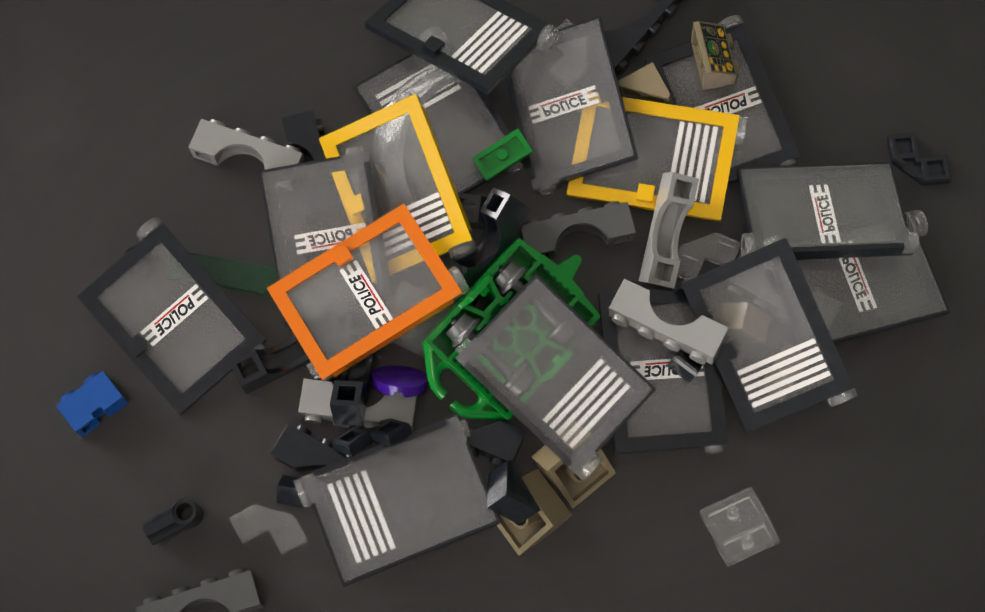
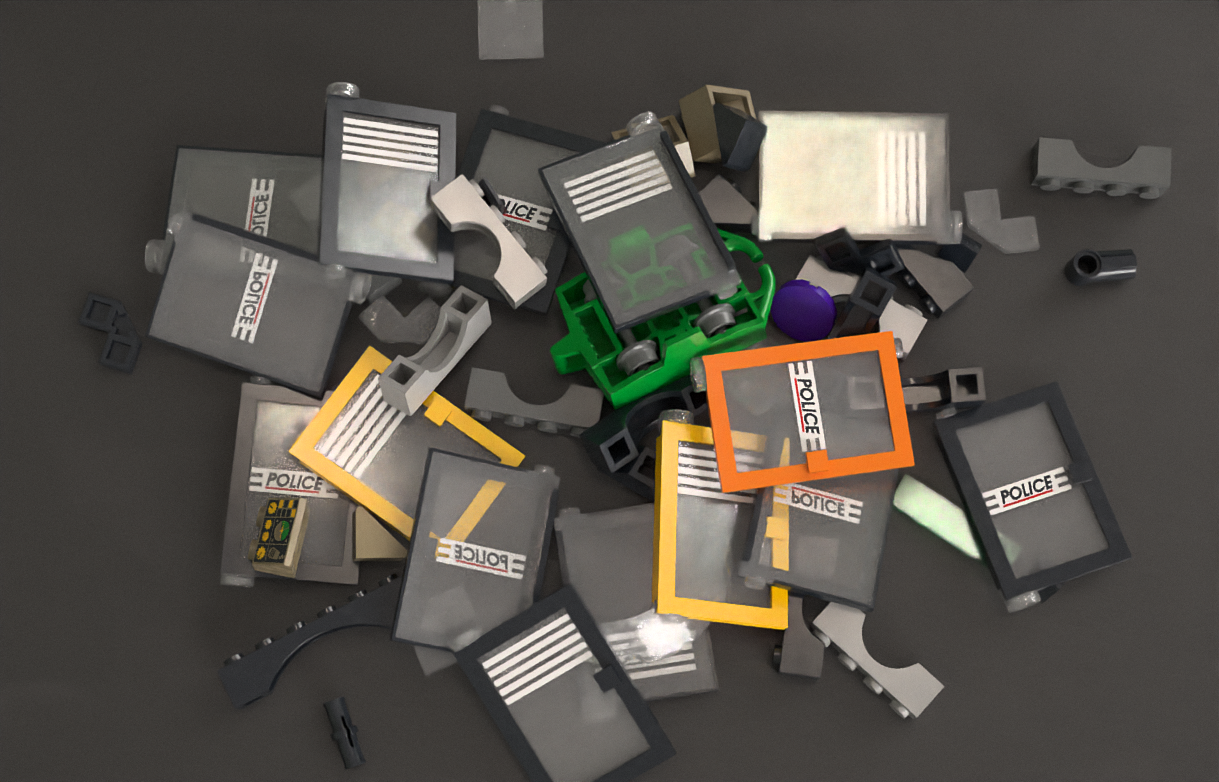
camera: 155 degrees left, 5 degrees up
(91, 402) = (1141, 433): blue brick -> none
(502, 155) = (580, 522): green plate -> none

